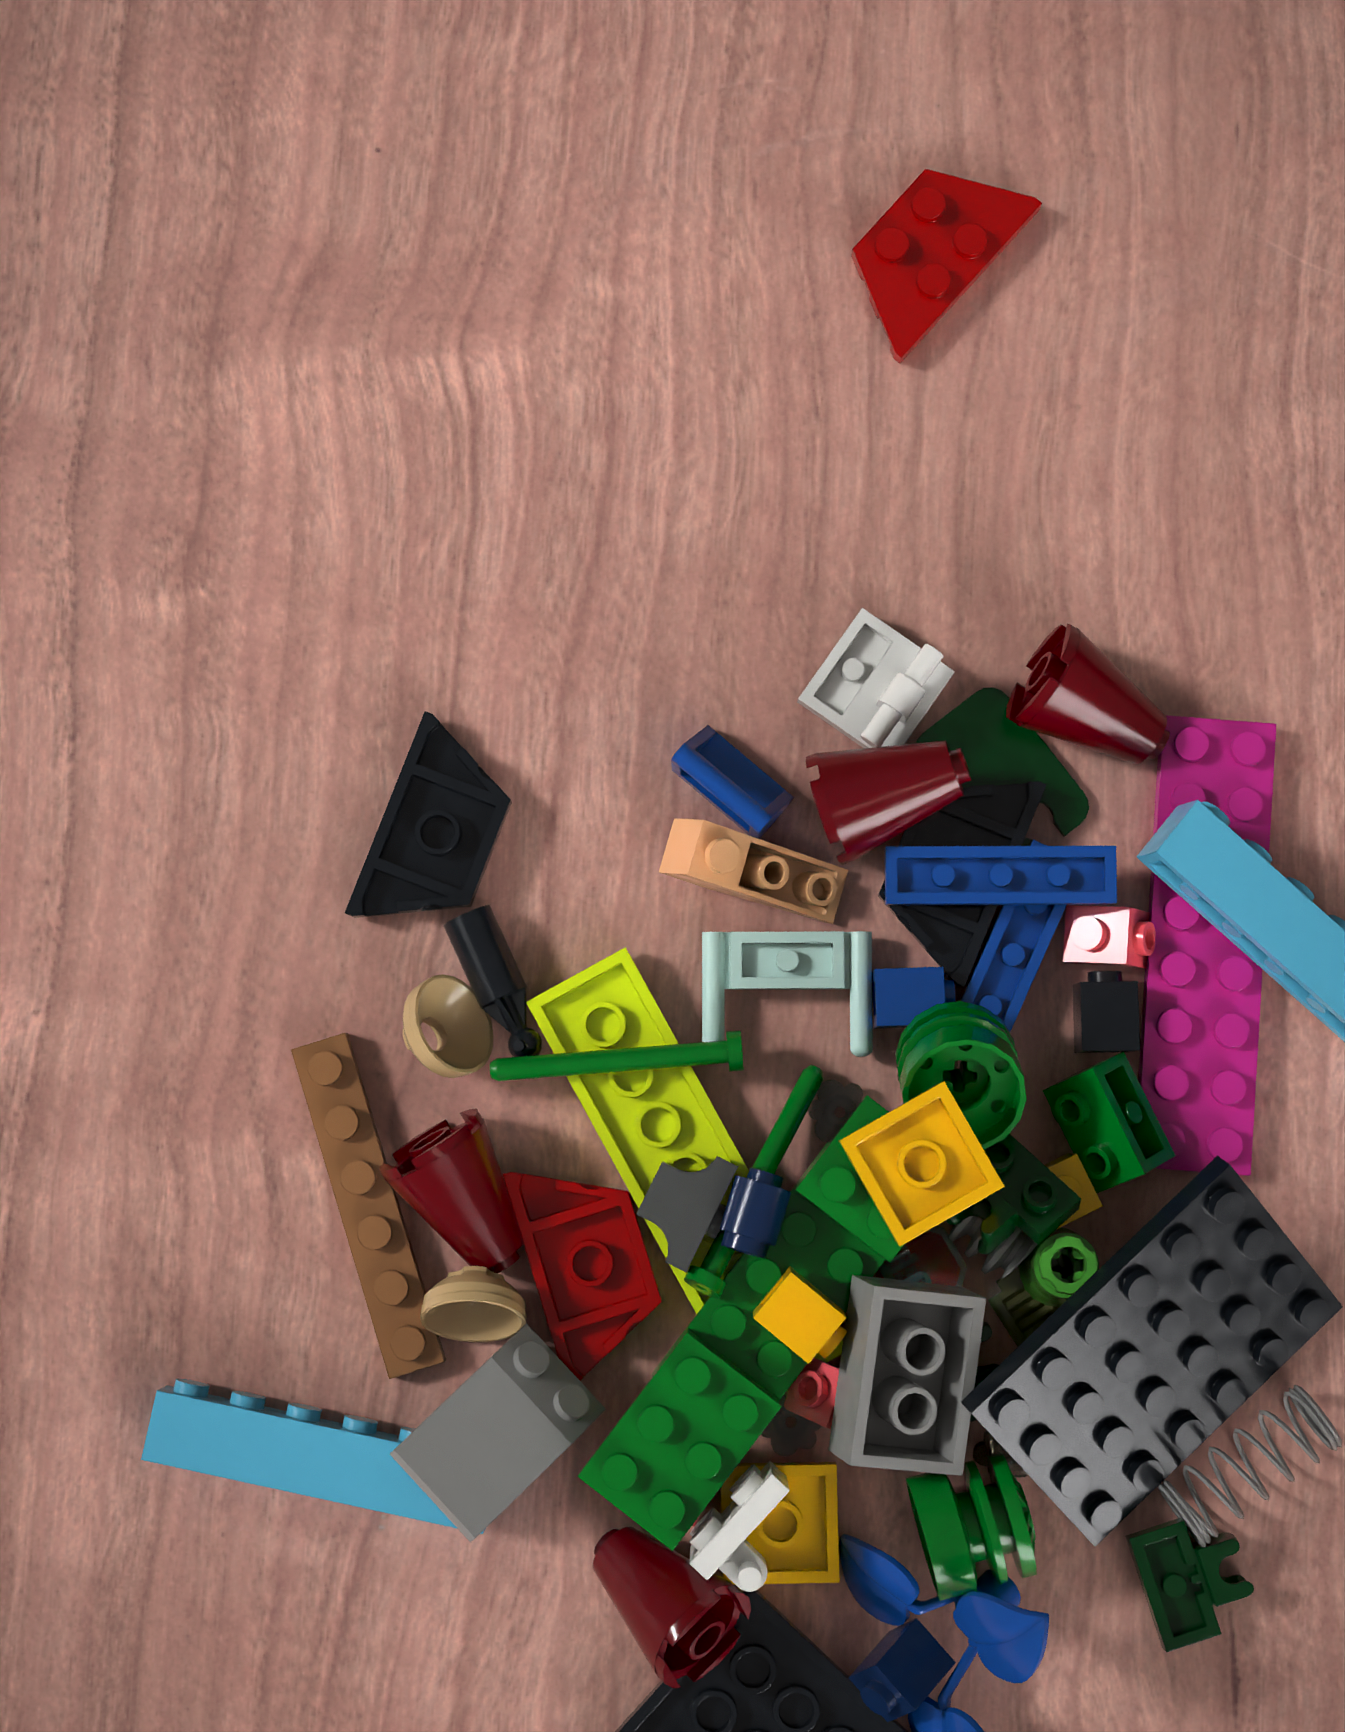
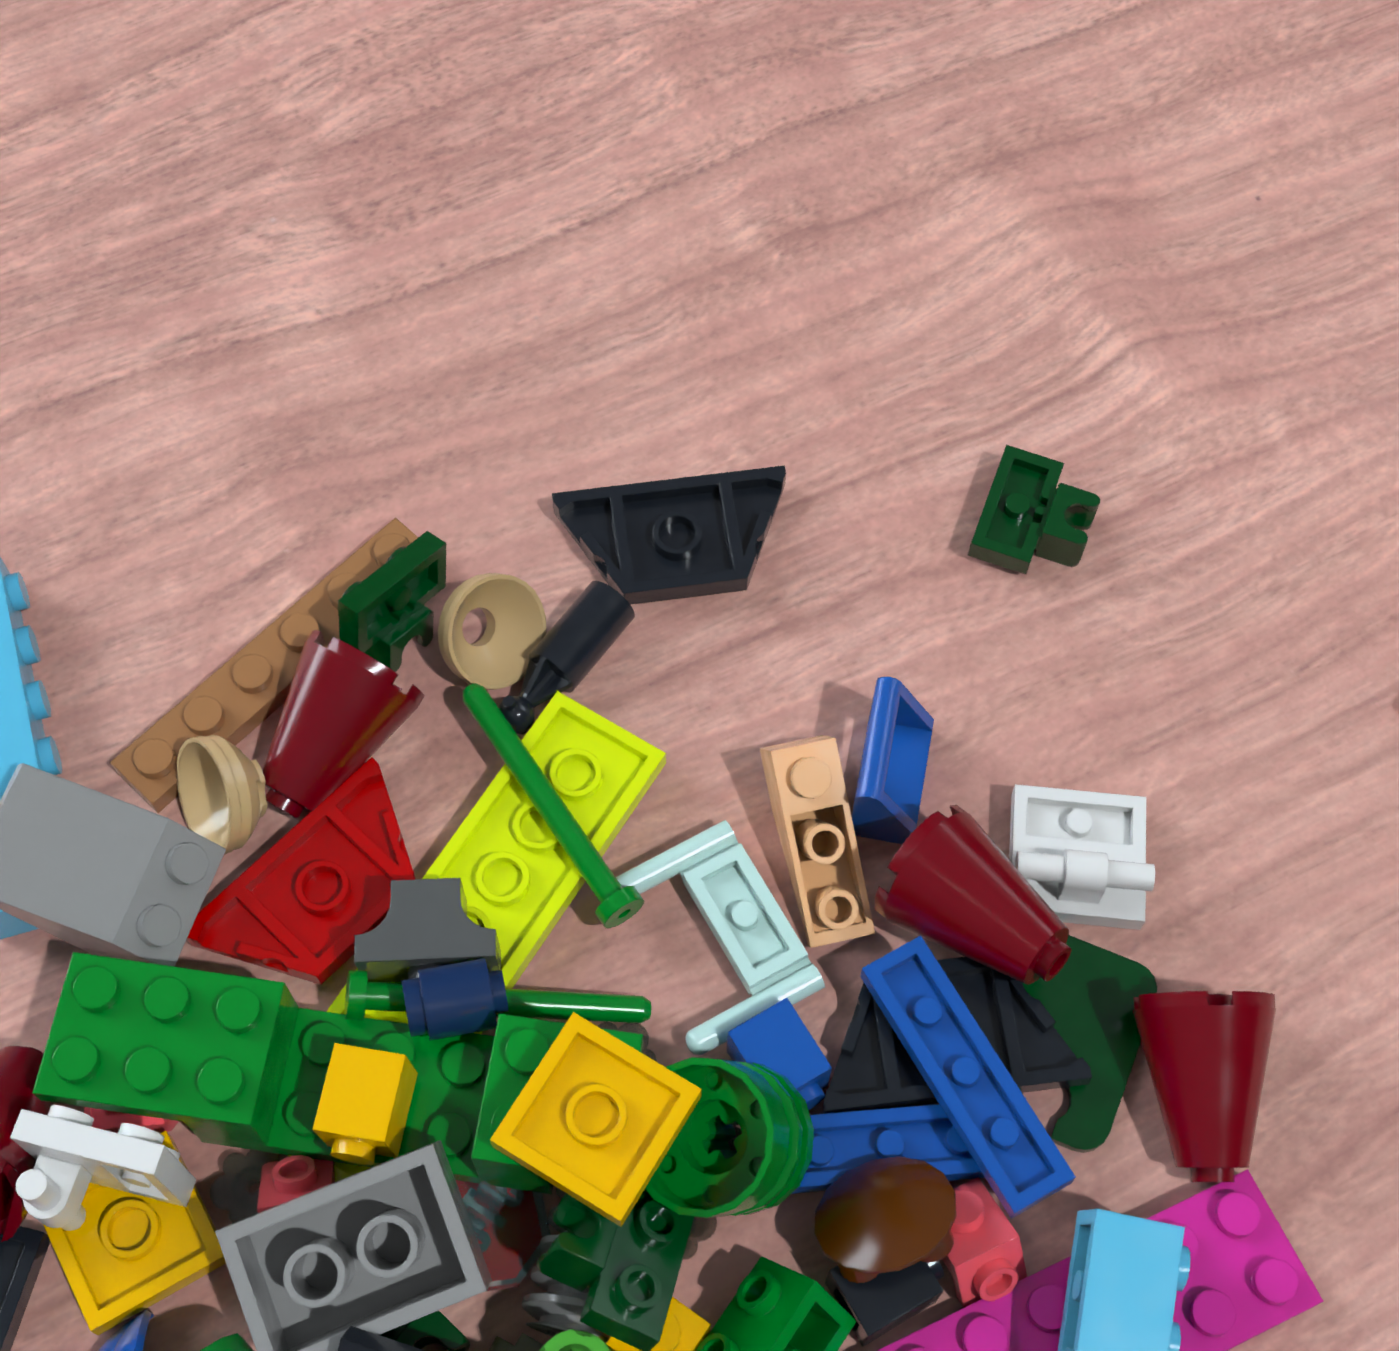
camera: 55 degrees right, 20 degrees down
(391, 1093) = (389, 604): none -> dark green plate
(573, 540) = (1032, 514): none -> dark green plate
(1069, 991) = (886, 1217): none -> reddish brown dish

